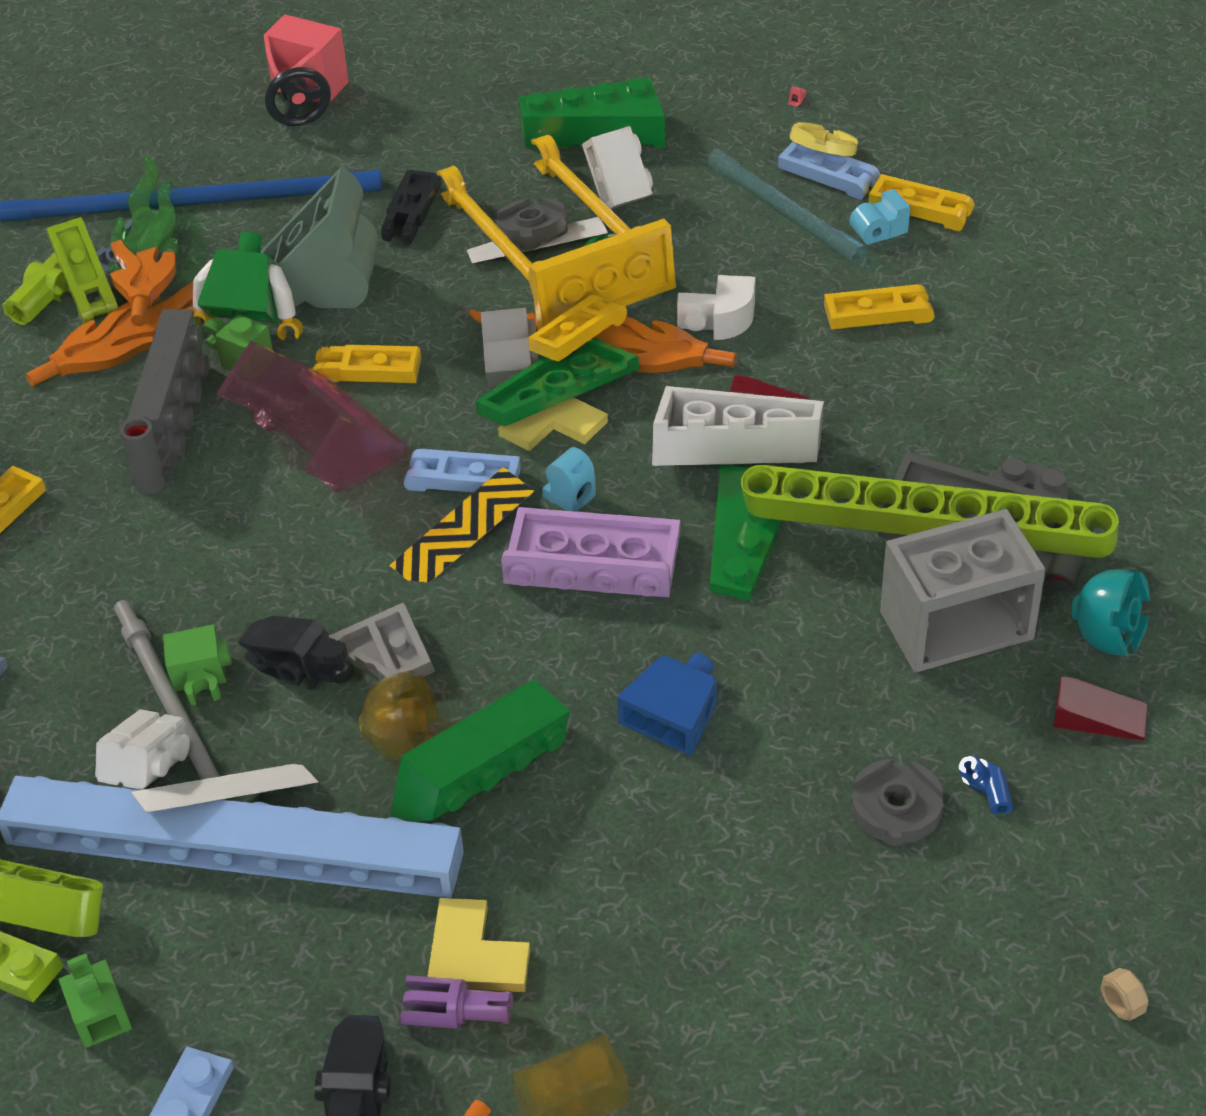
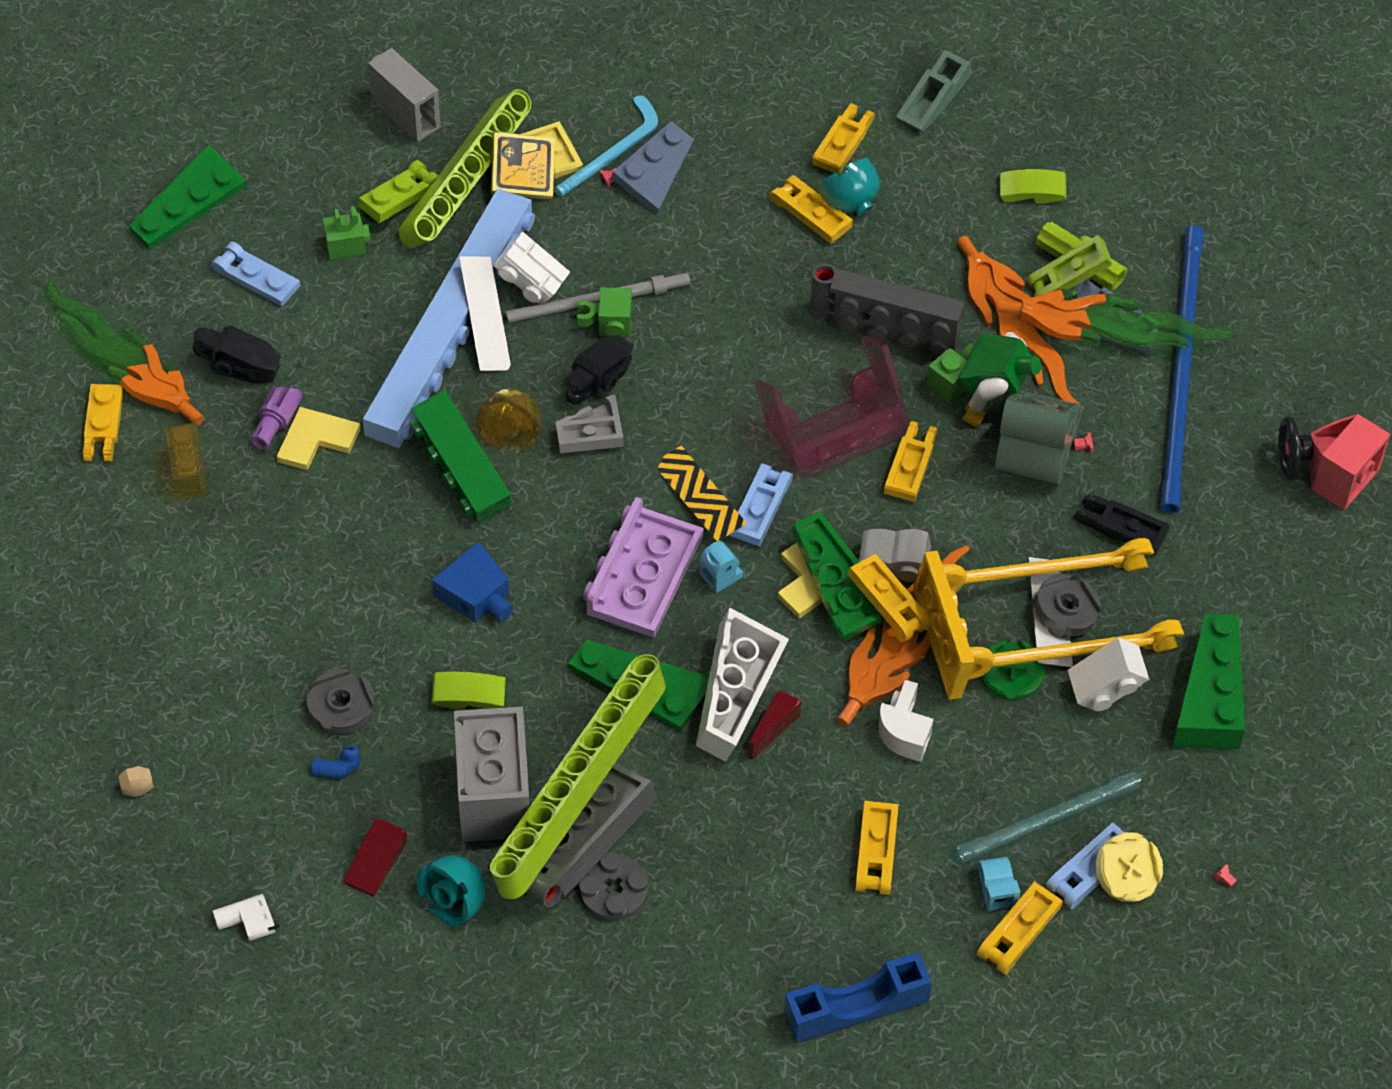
camera: 100 degrees right, 10 degrees up
(827, 677) = (473, 689): none -> lime slope
(1037, 258) = (891, 989): none -> blue arch

